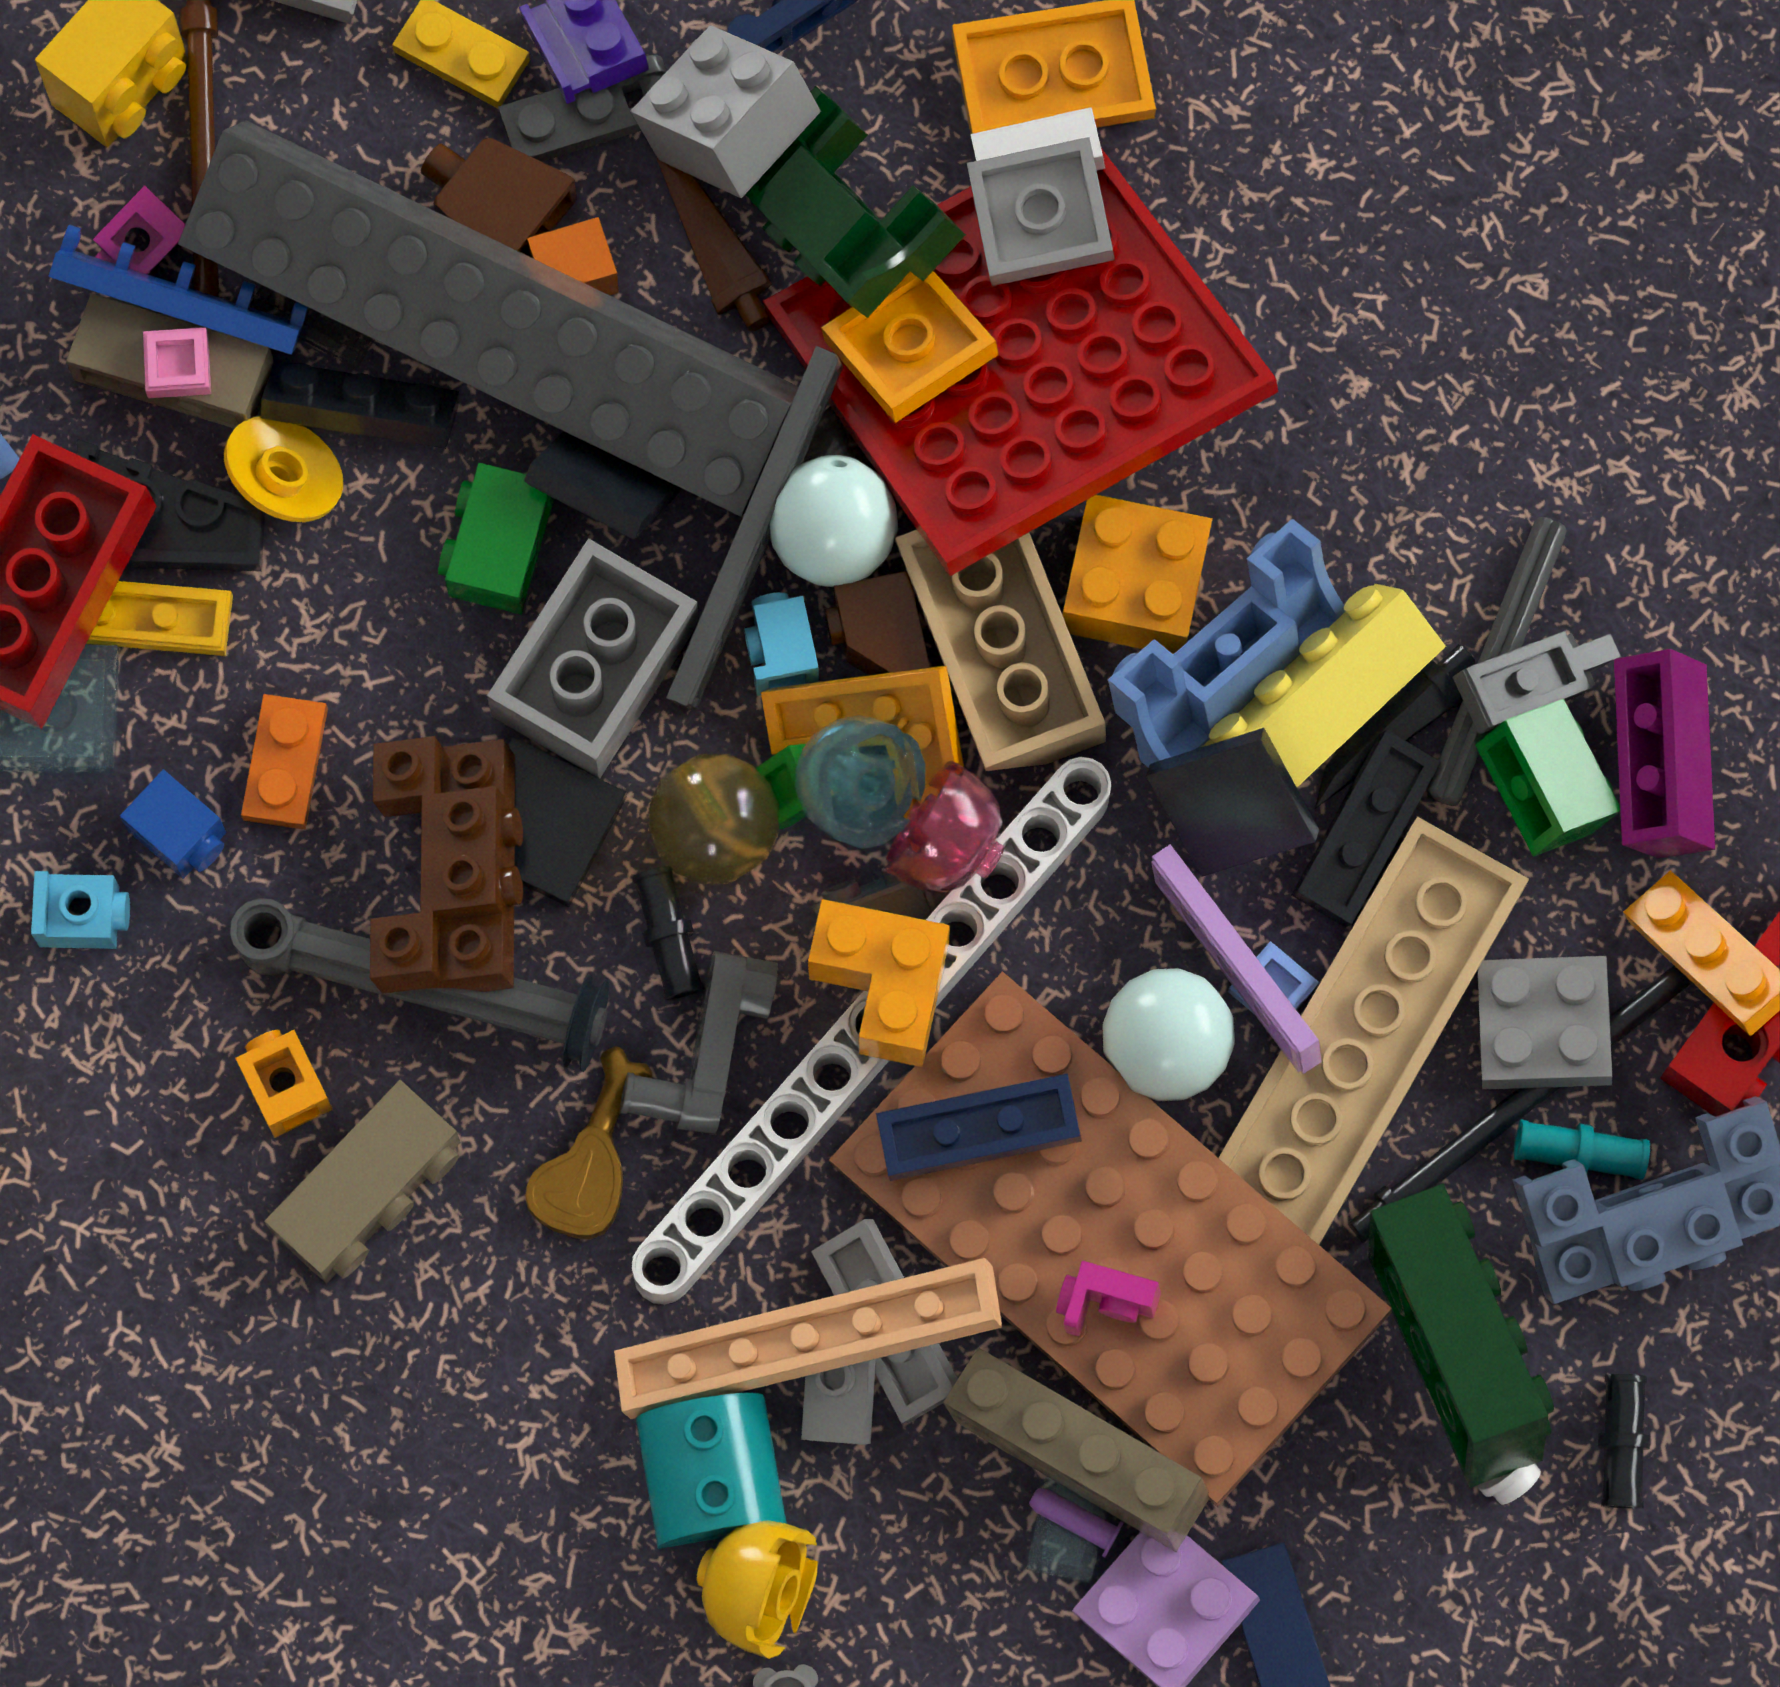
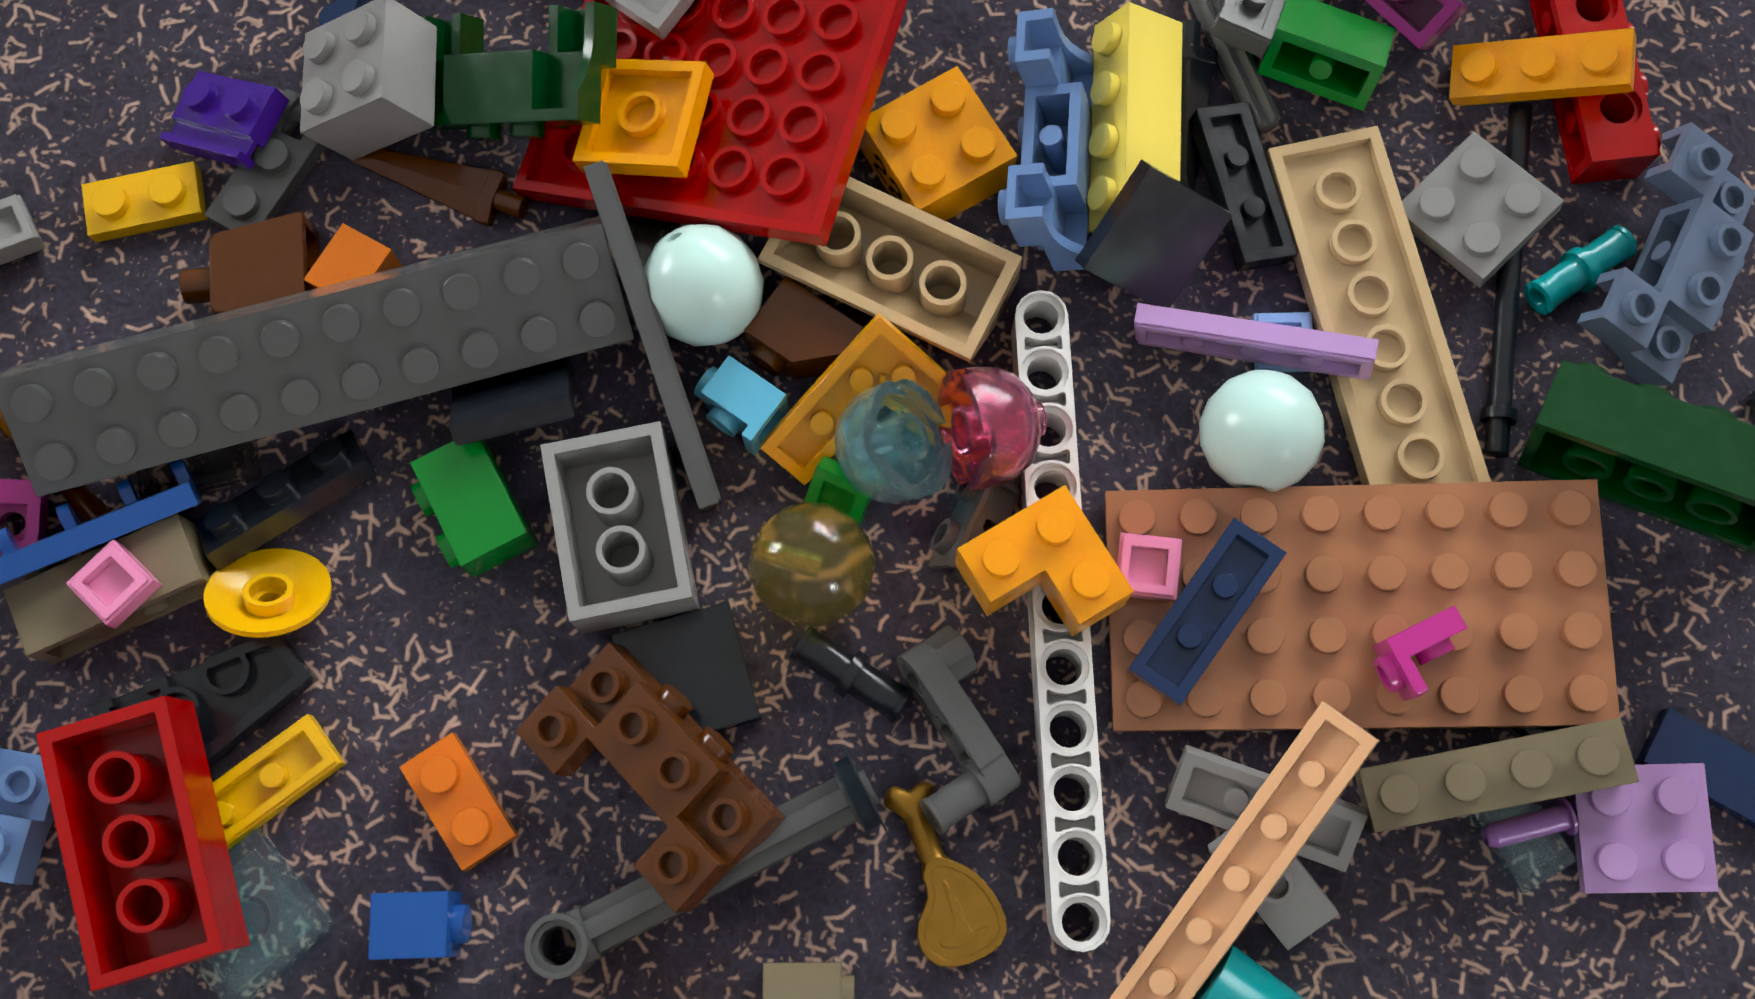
camera: 40 degrees left, 0 degrees up
(971, 1055) = (1150, 565): none -> bright pink tile

